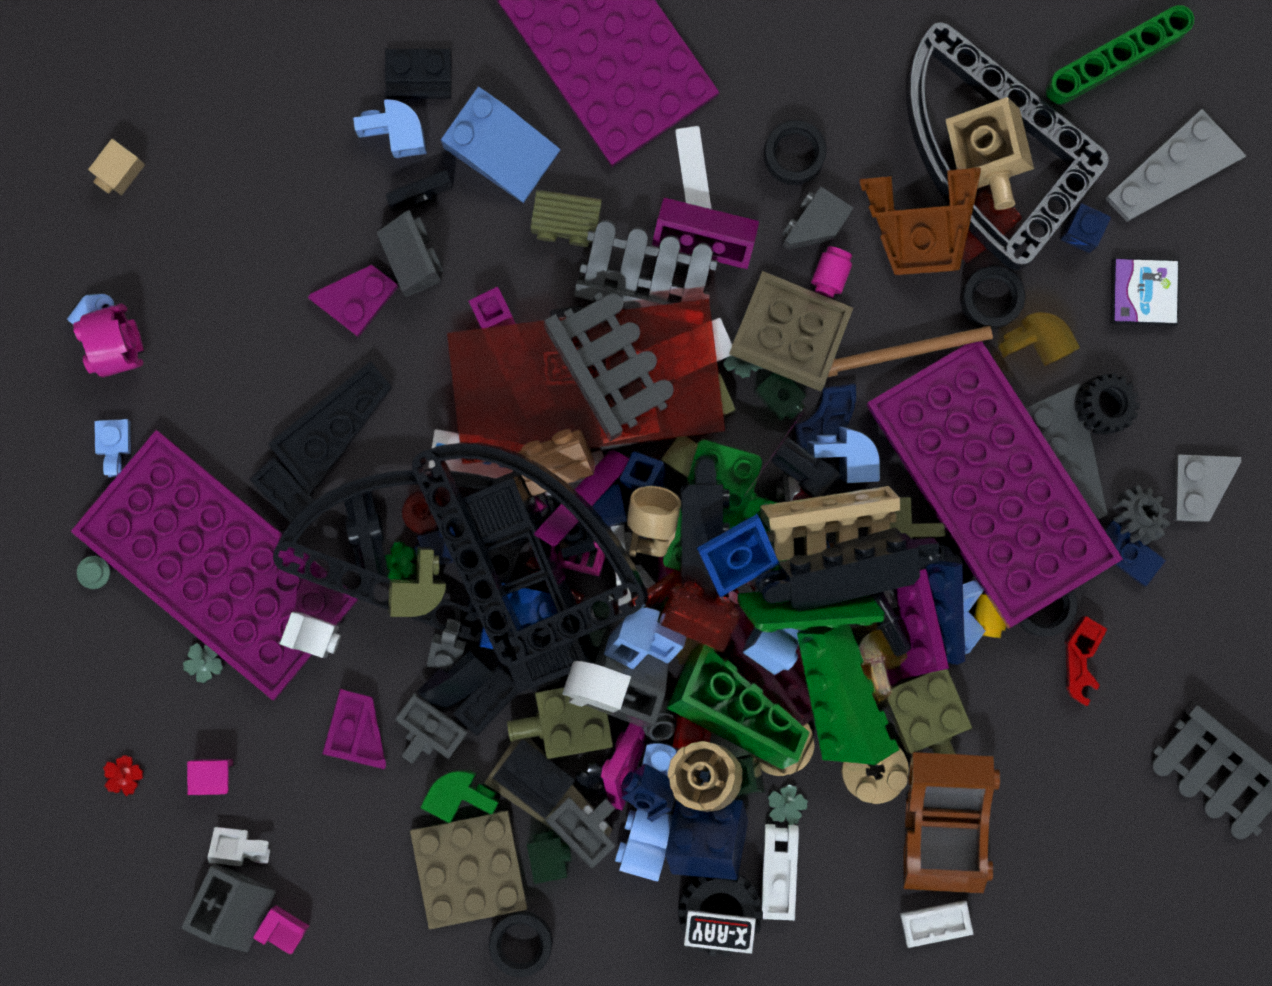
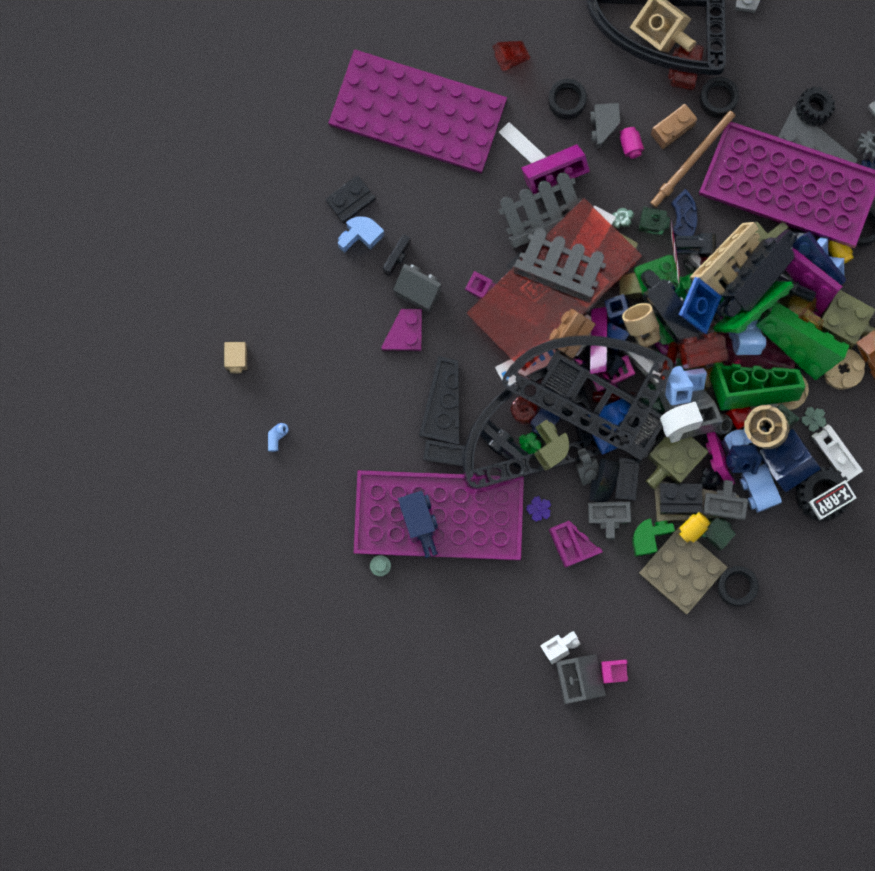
camera: 30 degrees left, 5 degrees down
(109, 341) = (301, 442): dark pink brick -> none
(112, 440) = (339, 493): light blue plate -> none
(122, 775) = (473, 656): red plant -> none
(175, 555) = (418, 520): none -> dark blue brick
(202, 663) = (469, 569): sand green plant -> none
(208, 776) = (519, 621): dark pink panel -> none
(310, 635) = (517, 509): white arch -> none
(350, 653) = (539, 509): none -> dark purple plant
(499, 145) = (419, 203): medium blue slope -> none
(519, 829) = (694, 527): none -> yellow brick
(565, 217) = (479, 213): olive brick -> none
(767, 38) = (510, 54): none -> clear red slope
(791, 331) = (635, 185): dark tan plate -> none
(855, 451) = (712, 220): light blue brick -> none
(903, 291) = (674, 126): none -> medium nougat brick
(924, 237) = (664, 91): dark orange wing -> none
(1048, 335) = (758, 94): clear yellow brick -> none
(1085, 228) = (737, 30): dark blue brick -> none
(1145, 291) = (790, 39): tile -> none

